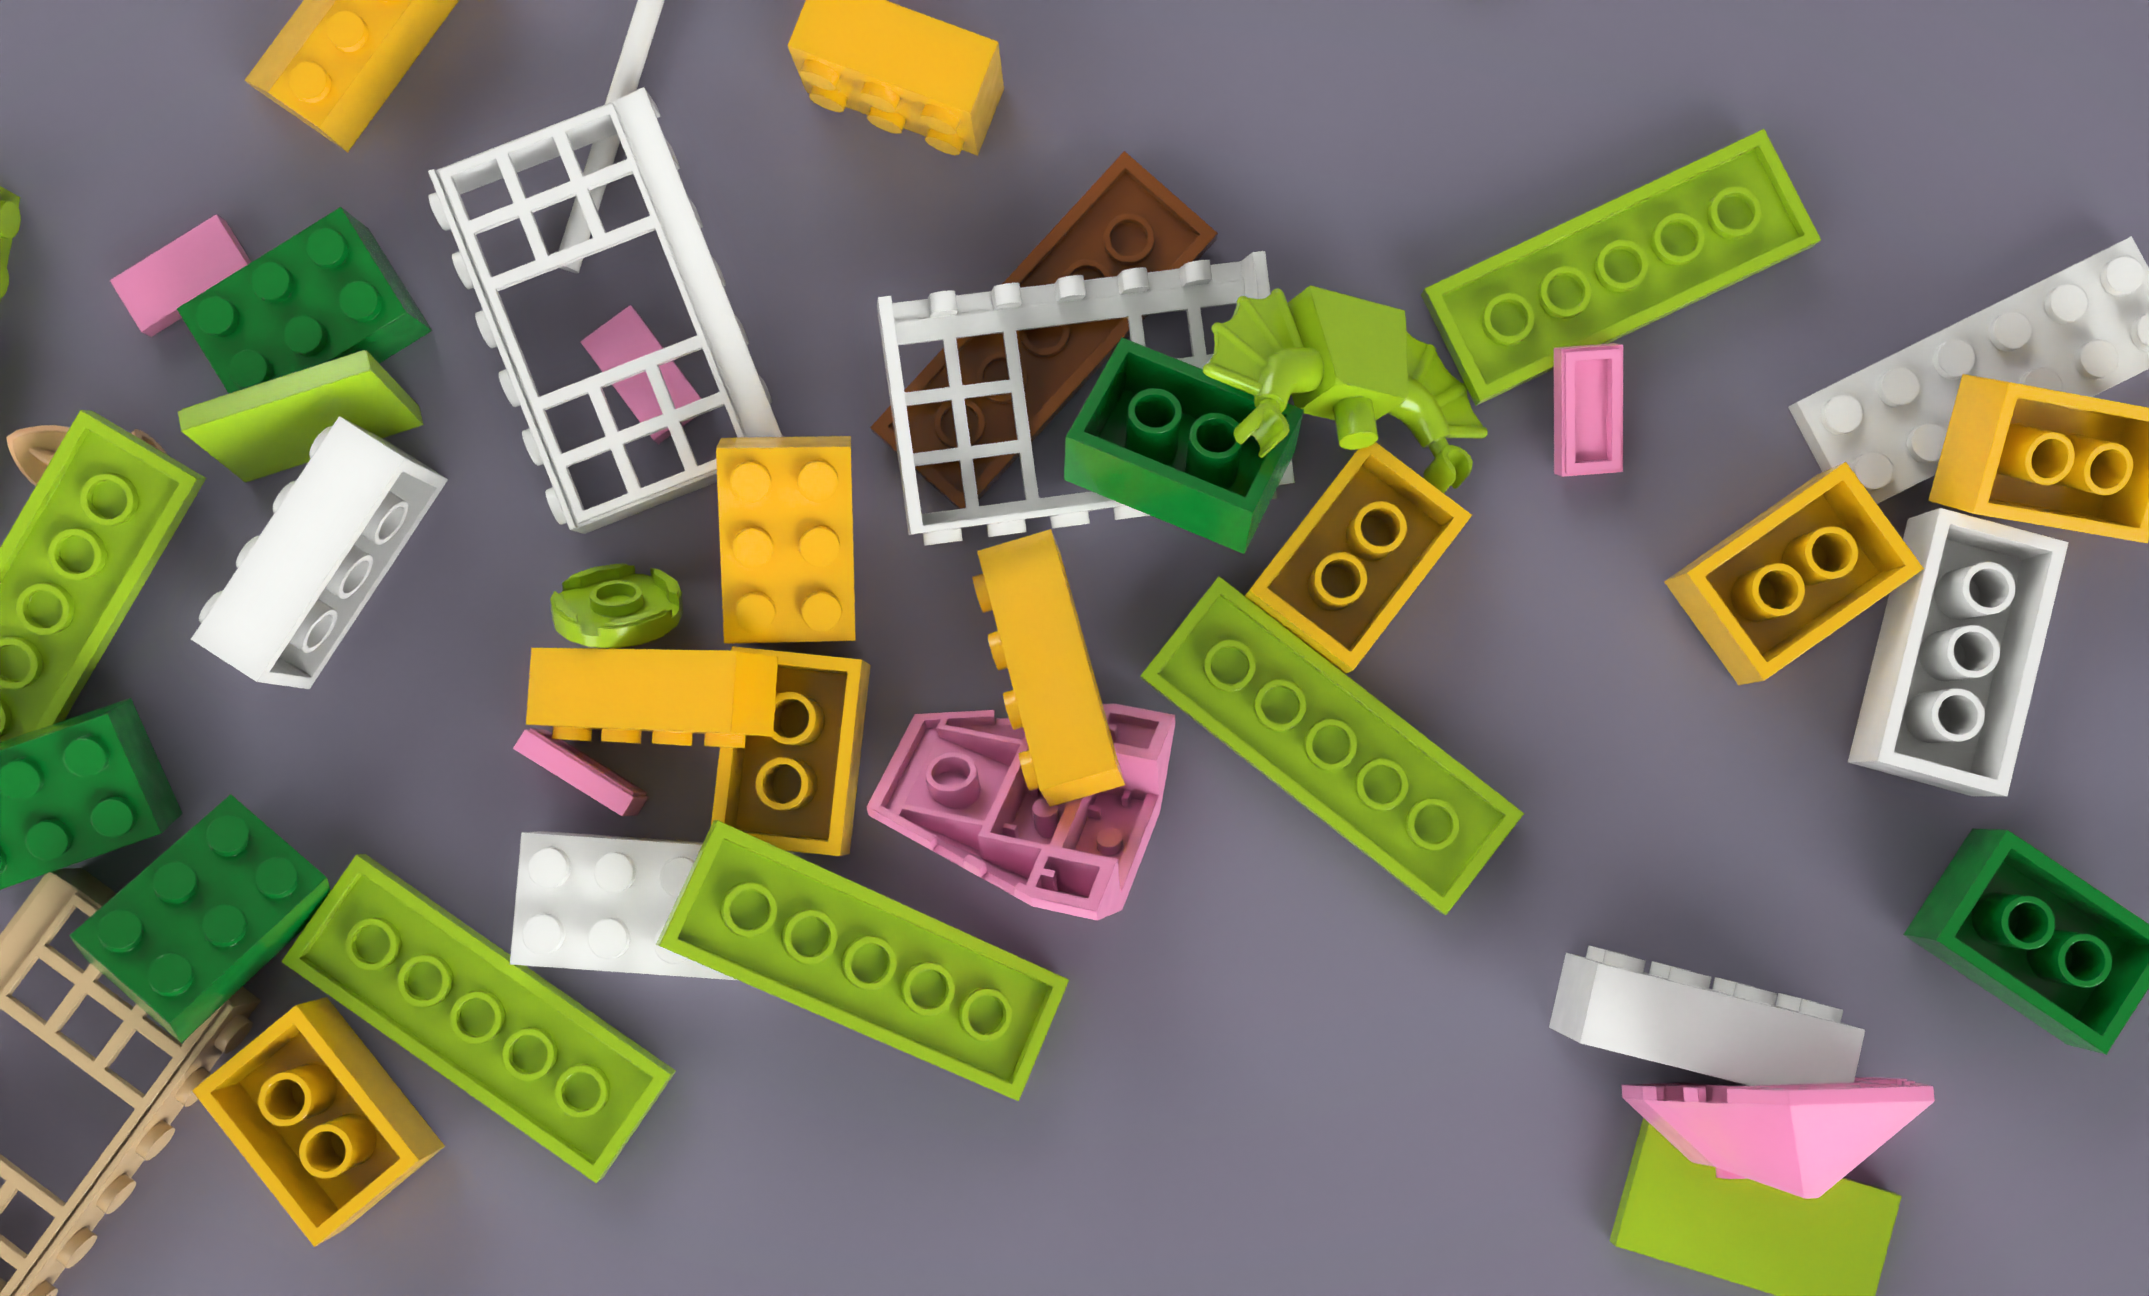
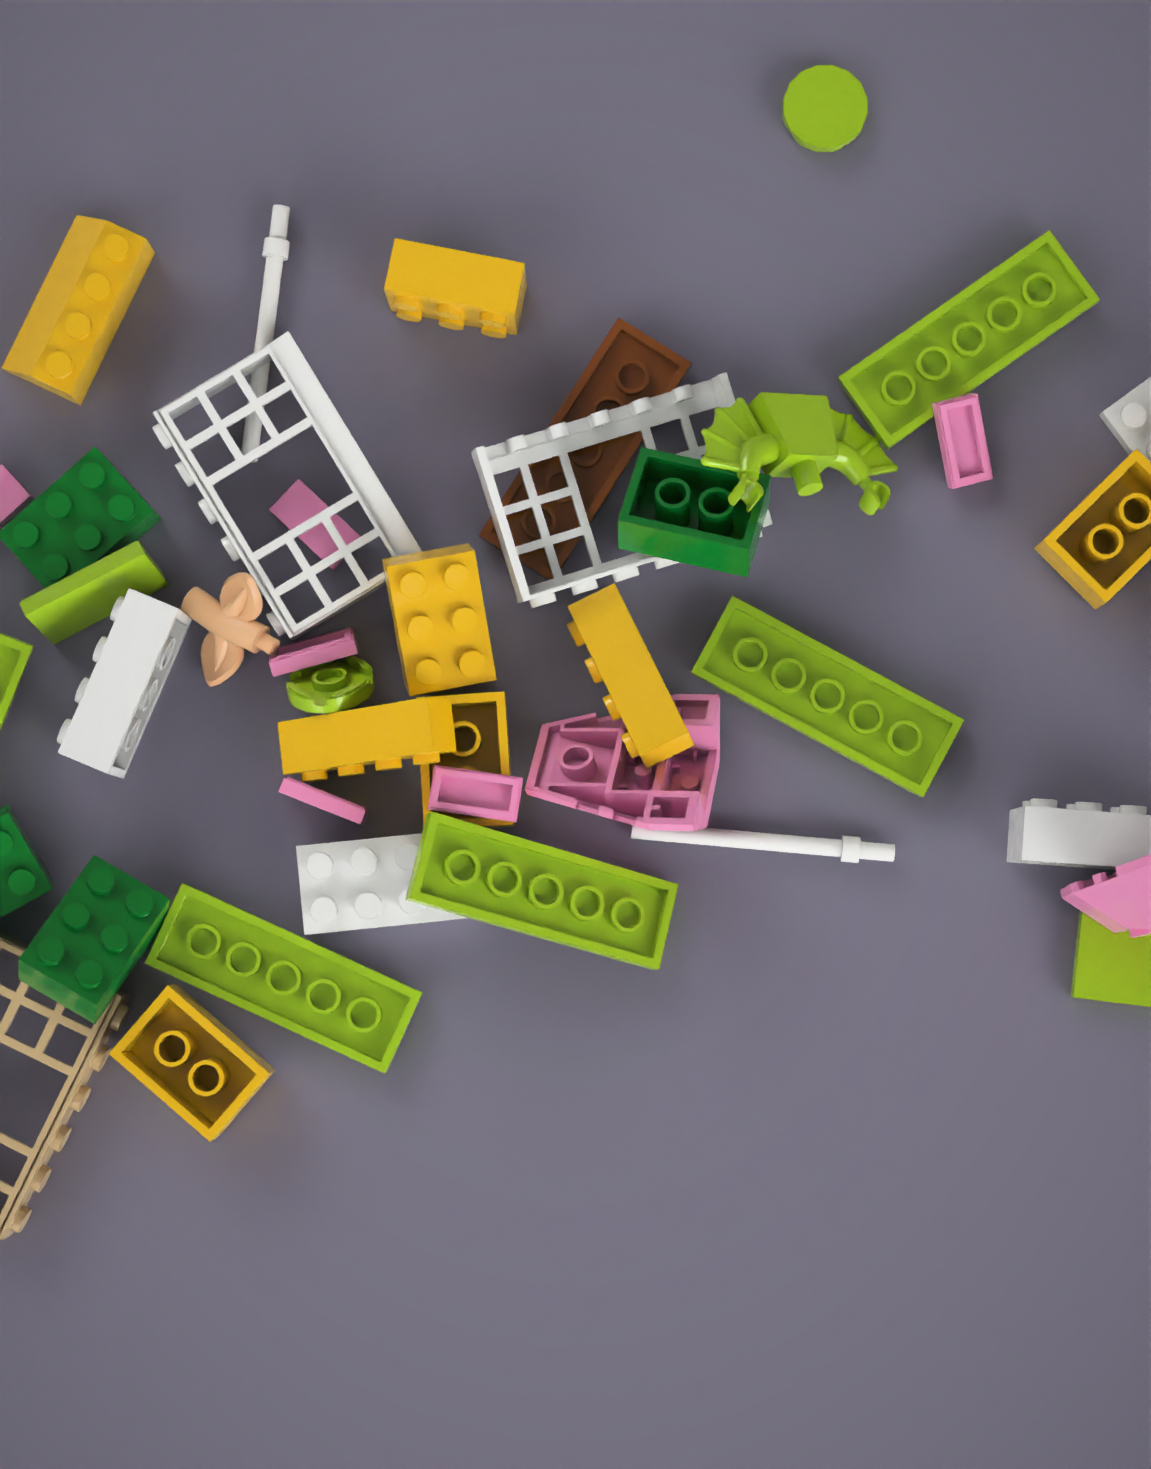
camera: 15 degrees left, 0 degrees up
(493, 497) = (229, 625): none -> light nougat plant
(604, 554) = (314, 651): none -> bright pink tile
(791, 802) = (475, 793): none -> bright pink tile
(1324, 970) = (848, 848): none -> white bar
(1358, 556) = (823, 566): yellow brick -> none

